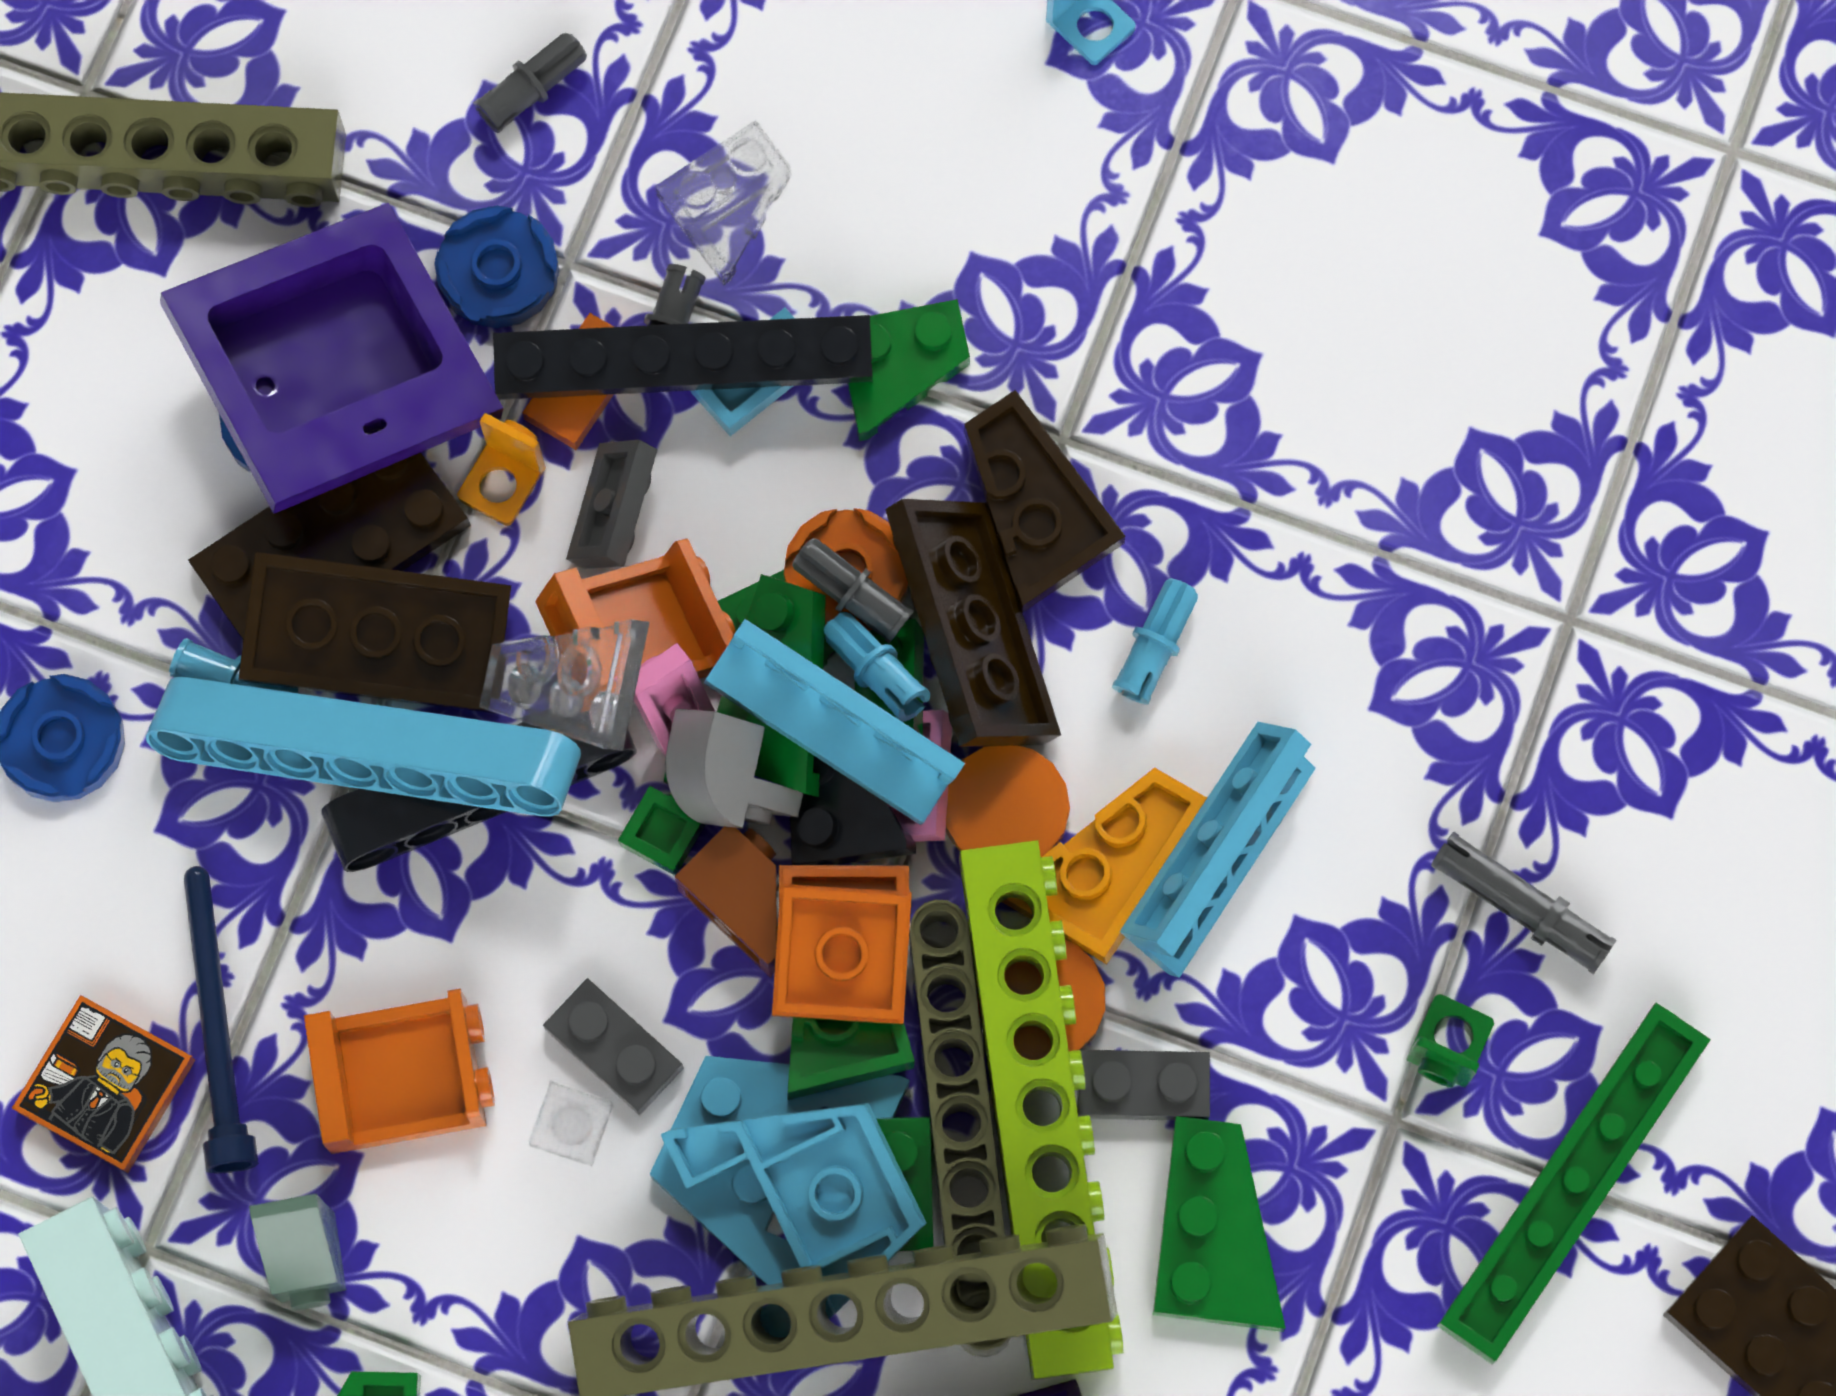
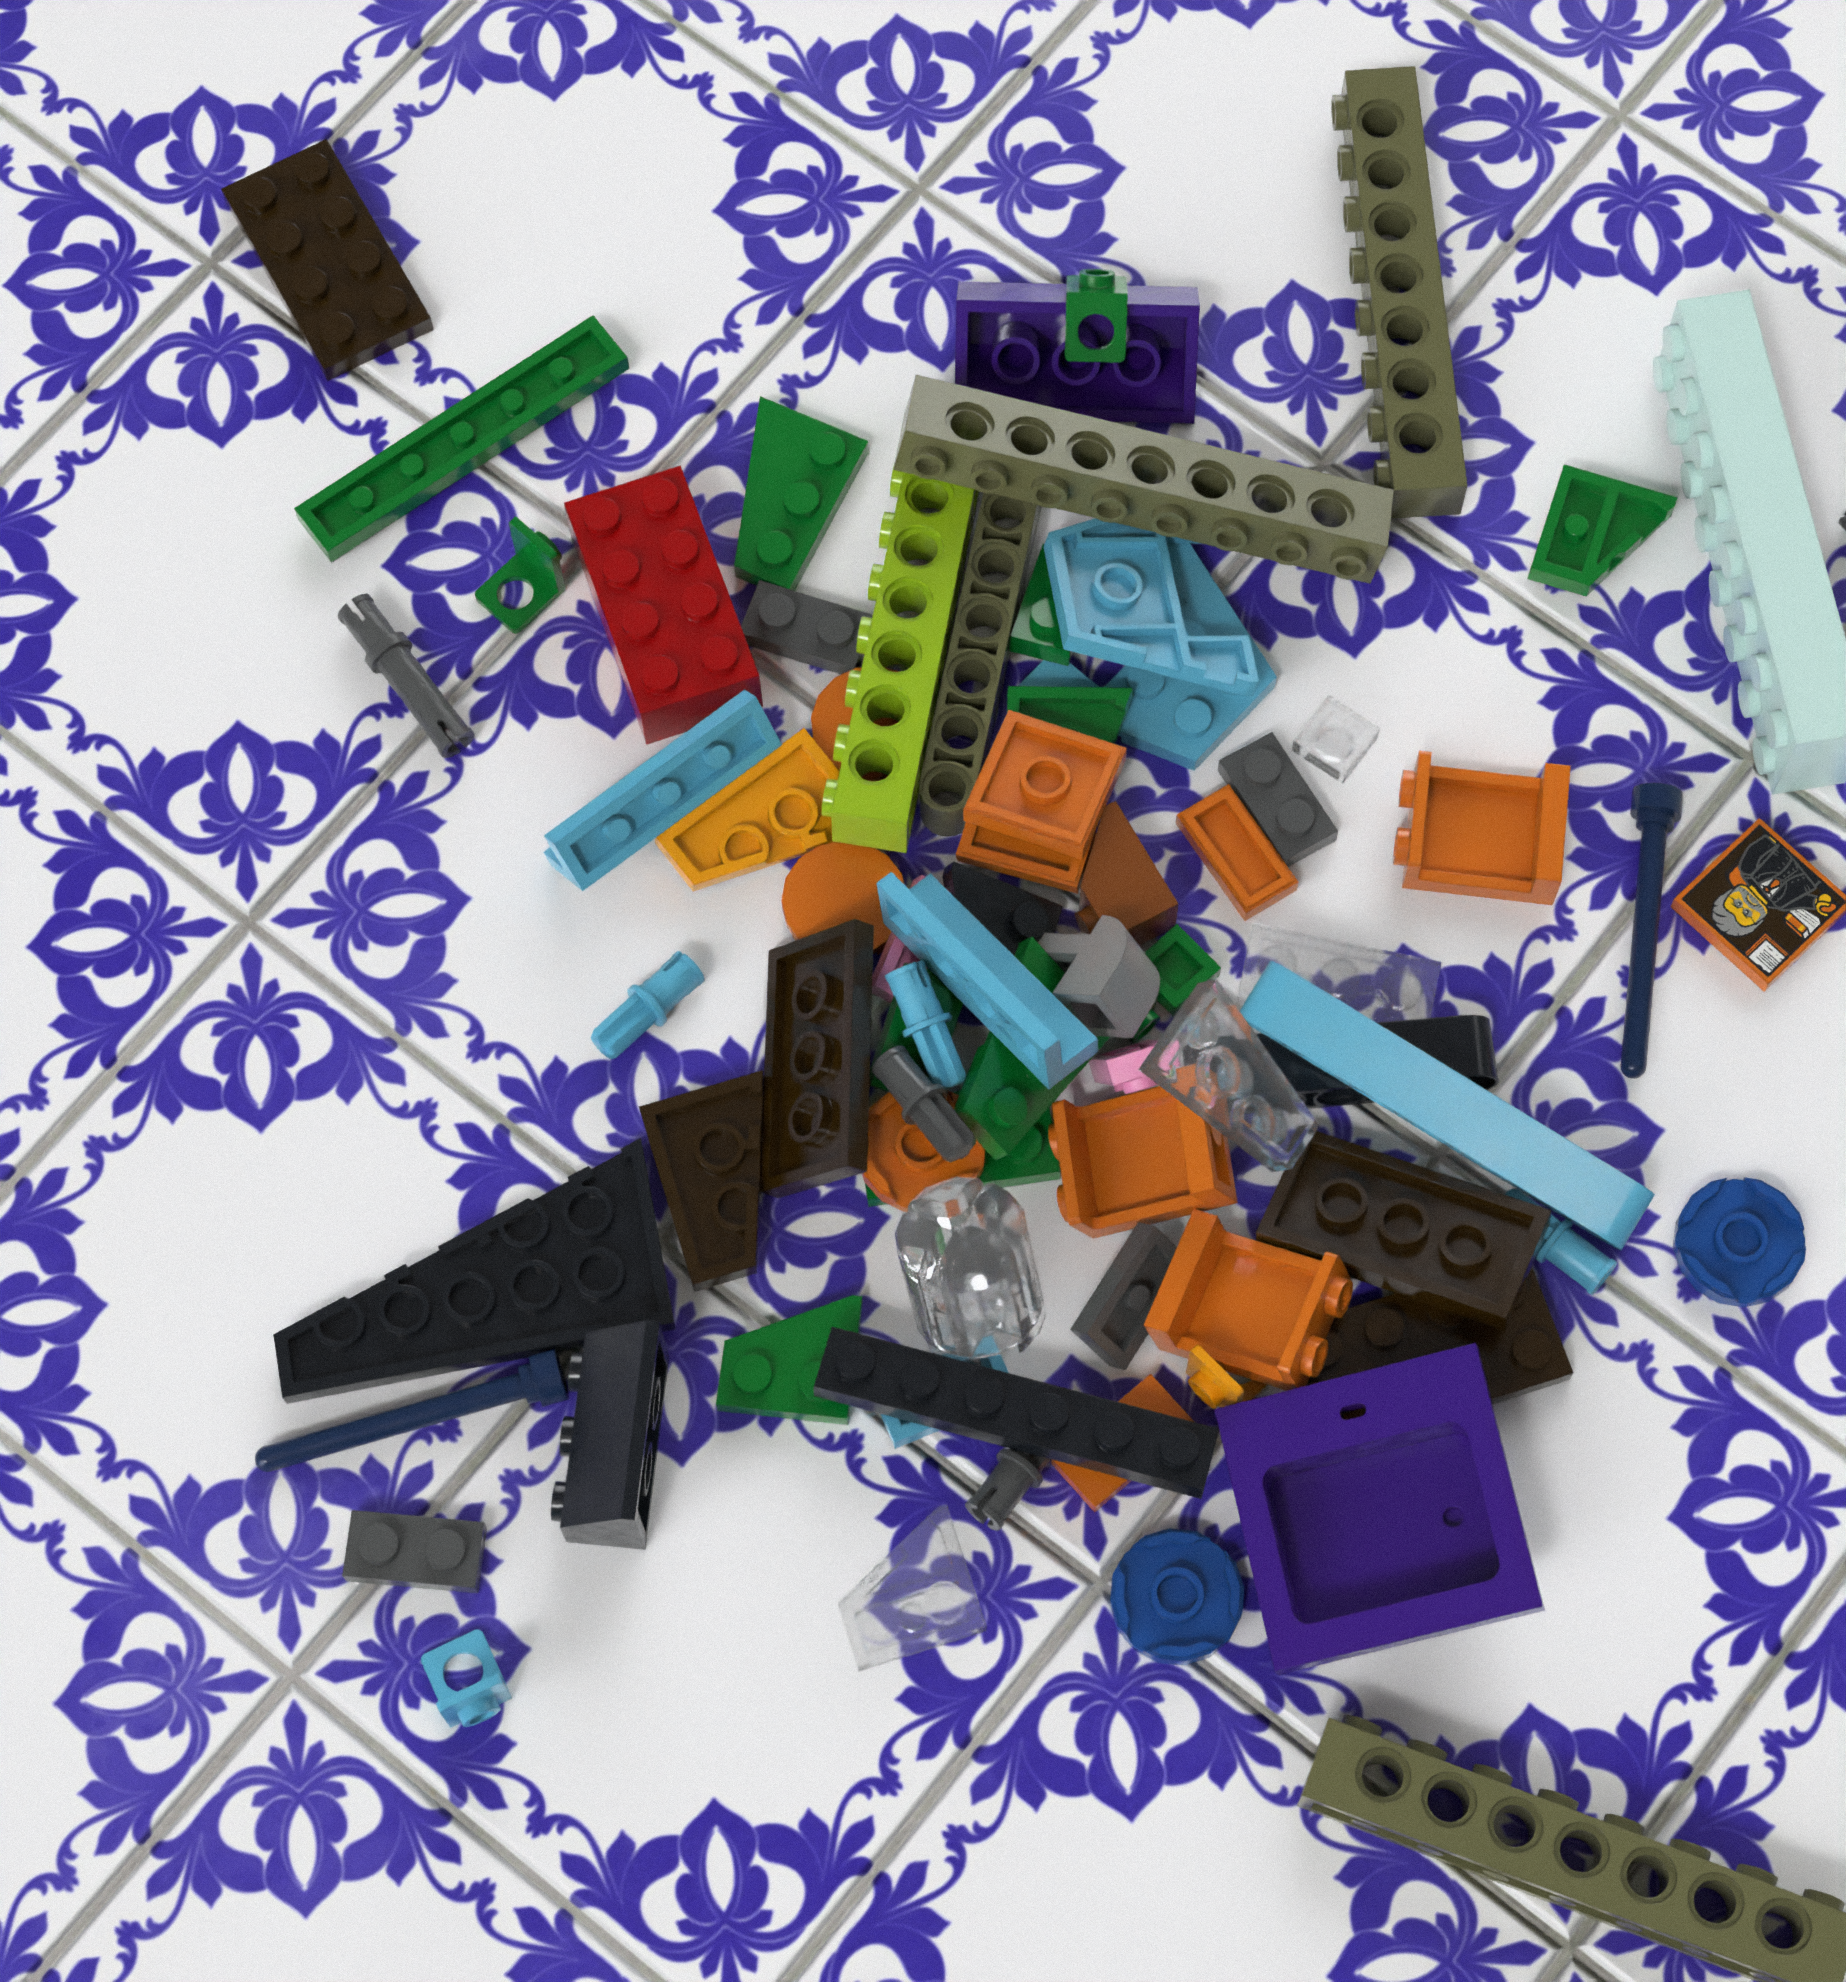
camera: 160 degrees left, 5 degrees down
(299, 1250) = (1611, 695): sand green slope -> none
(496, 518) = (1248, 1304): none -> orange panel
(507, 860) = (1368, 979): none -> clear wing
(530, 81) = (1082, 1790): dark grey axle -> none
(639, 979) = (1236, 852): none -> orange tile
(788, 429) = (970, 1270): none -> clear cylinder
(1035, 231) = (612, 1436): none -> black slope
(1122, 273) = (536, 1381): none -> dark blue piece
(1163, 357) = (496, 1292): none -> black wing
(1175, 105) = (414, 1551): none -> dark grey plate
(1295, 1050) = (662, 602): none -> red brick

